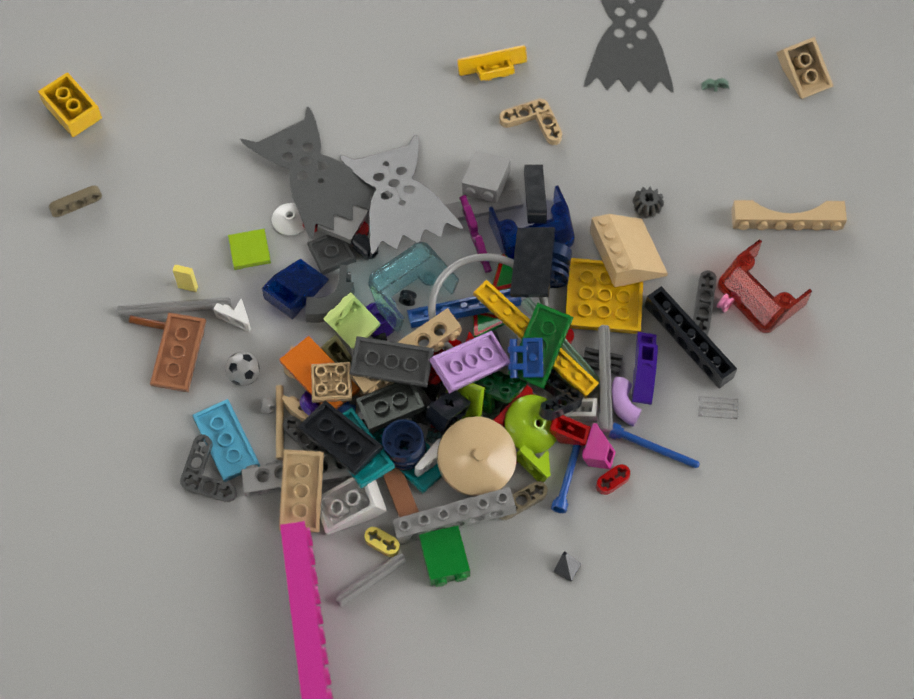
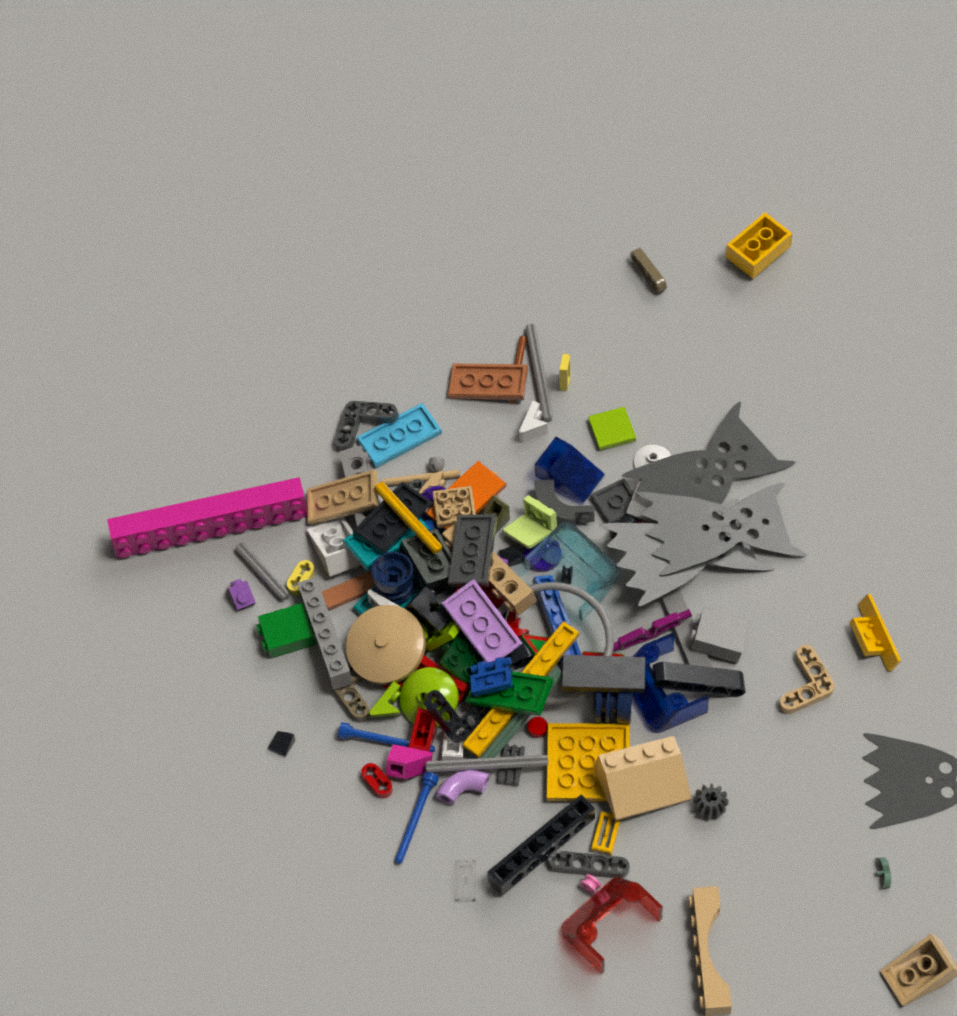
camera: 90 degrees right, 5 degrees down
(242, 368) = (471, 435): light grey piece -> none
(345, 420) = (406, 515): none -> yellow axle
(394, 186) = (686, 542): none -> piece
(395, 600) = (241, 594): none -> medium lavender bracket
(645, 368) = (501, 801): dark purple slope -> none
(673, 291) = (602, 849): none -> yellow tile

